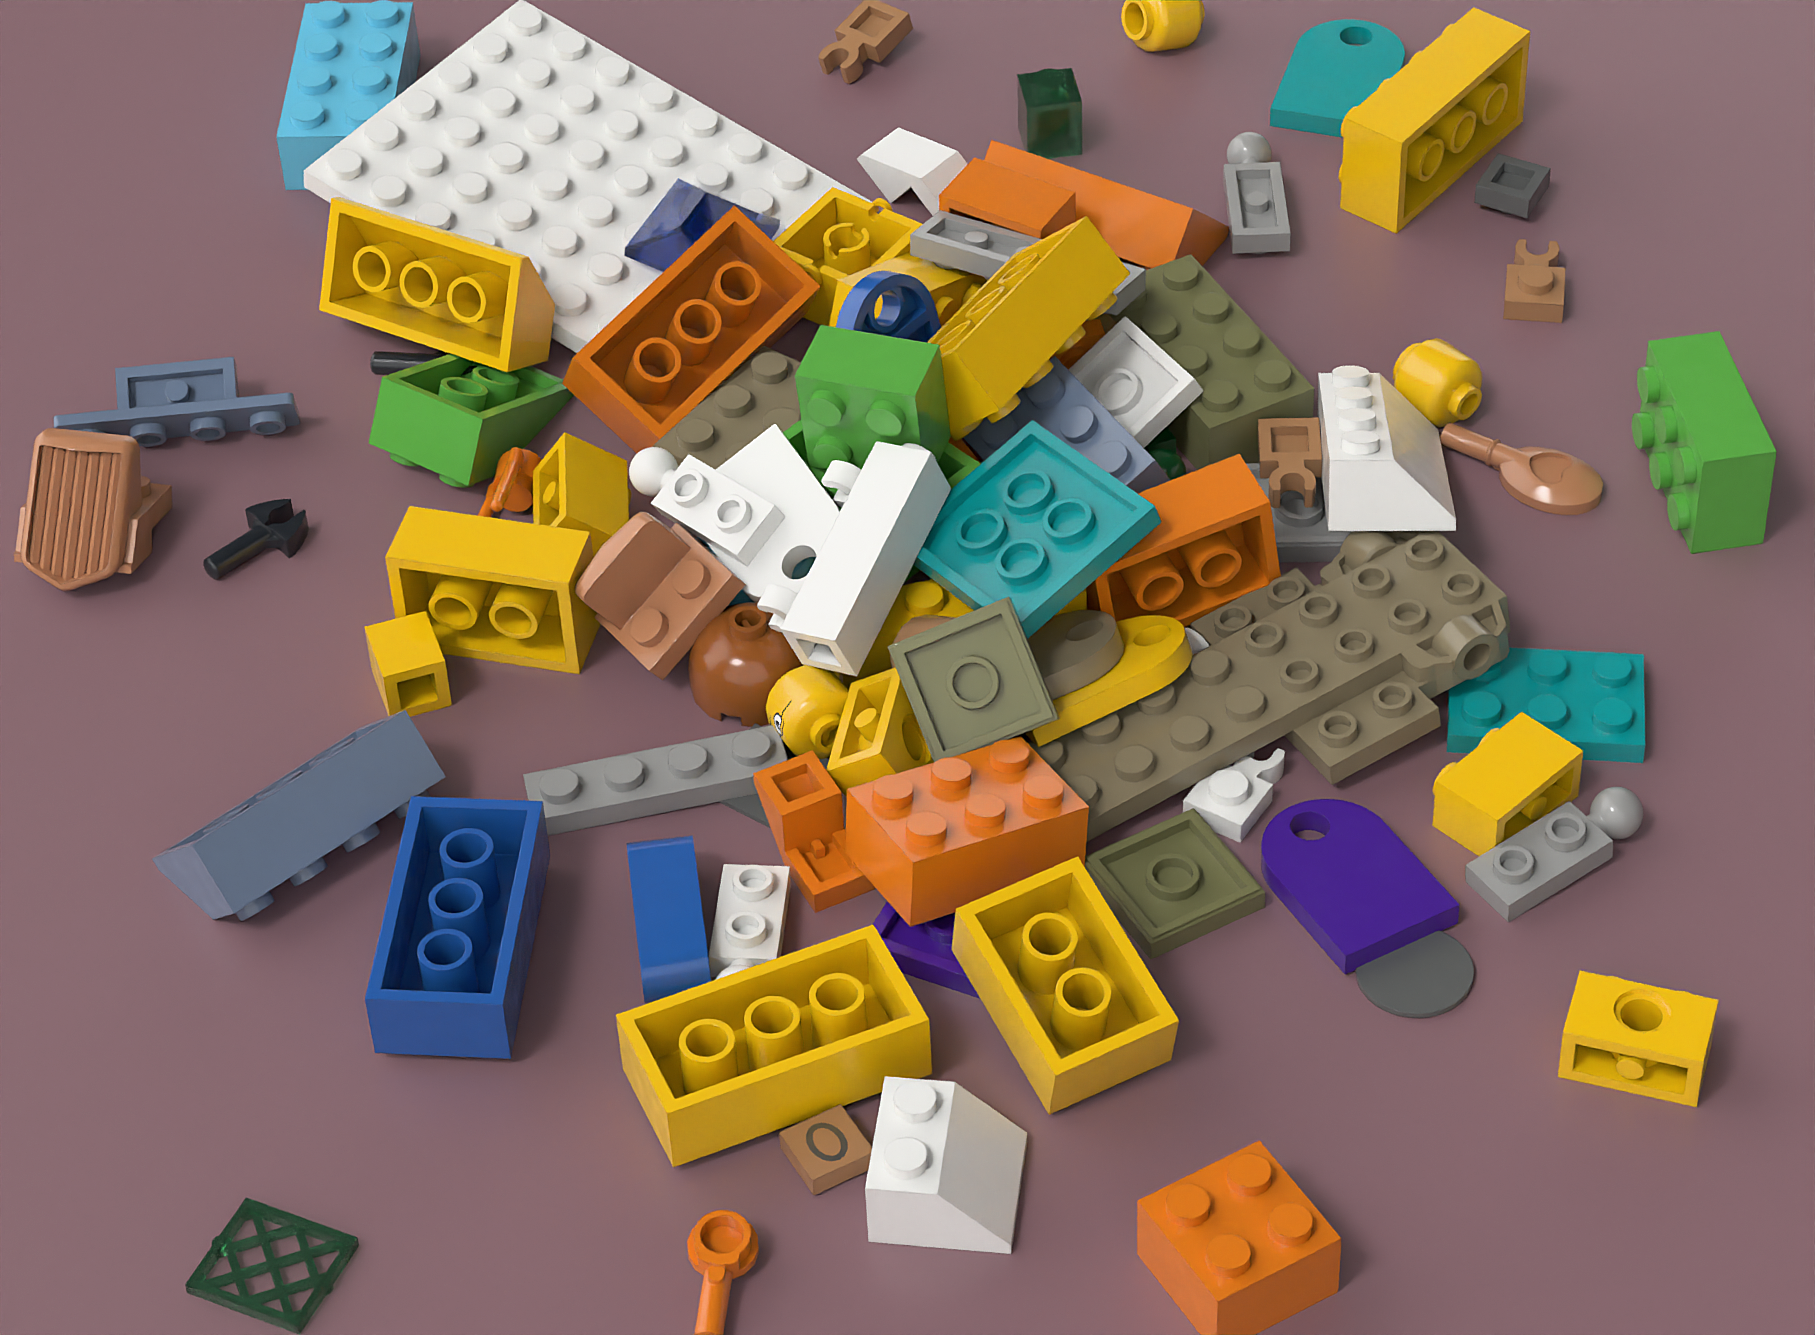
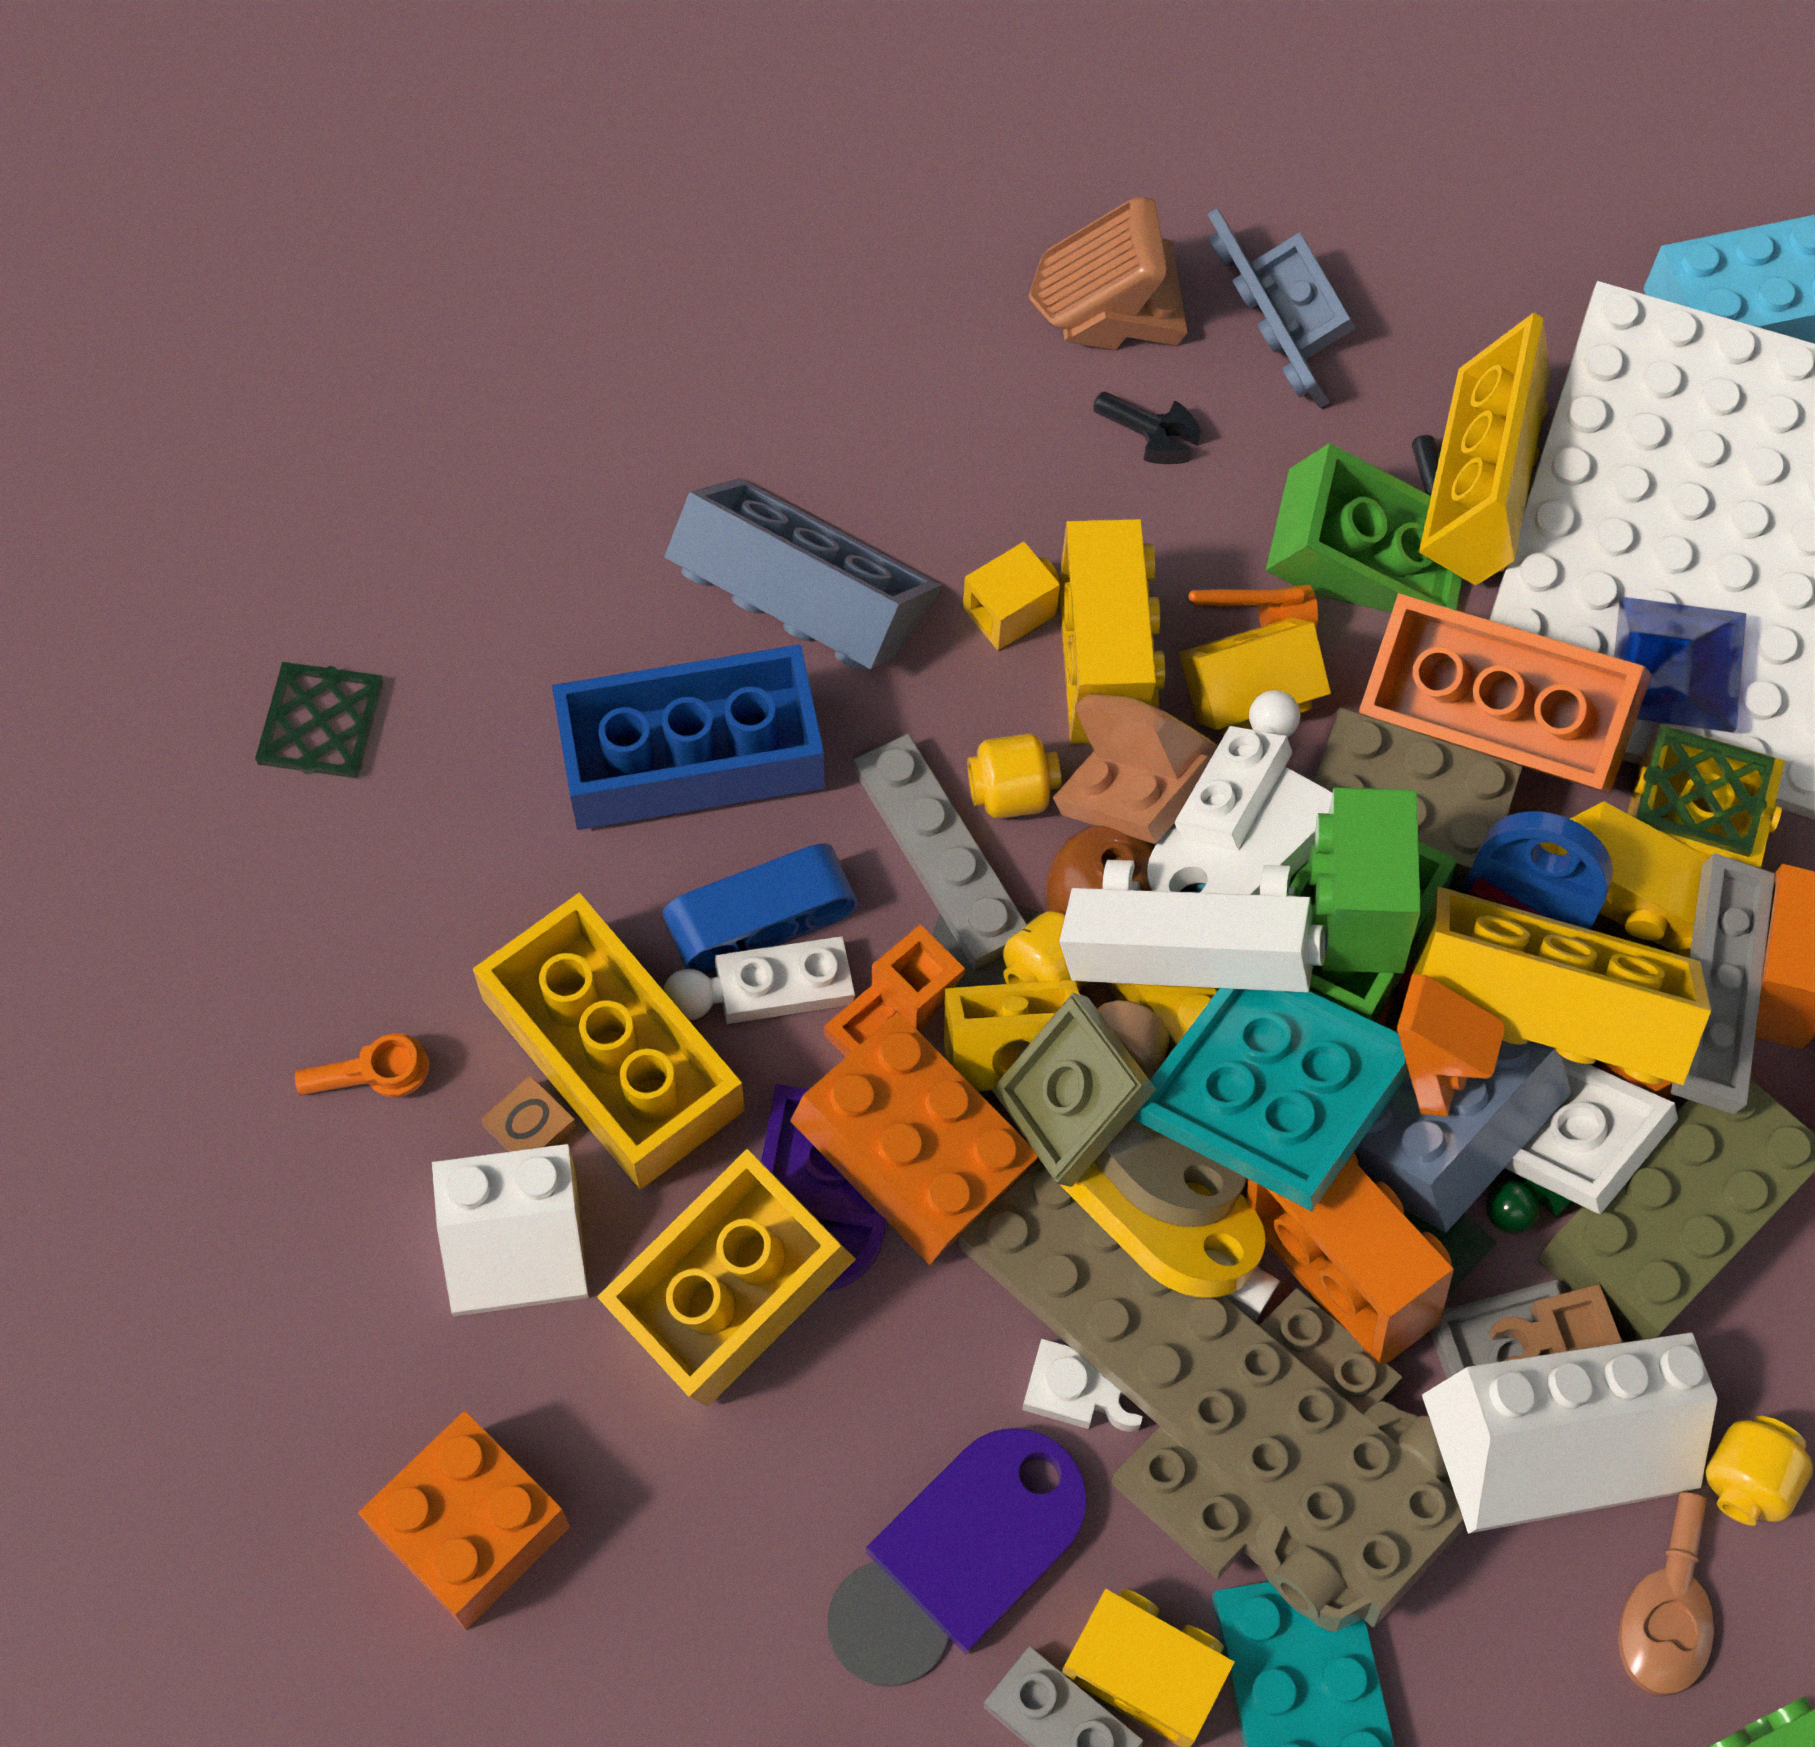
camera: 70 degrees right, 20 degrees up
(607, 702) = (1013, 776): none -> yellow head
(867, 207) = (1718, 750): none -> clear green window
(1044, 390) = (1445, 1042): none -> orange slope
(1173, 883) = (939, 1355): olive tile -> none

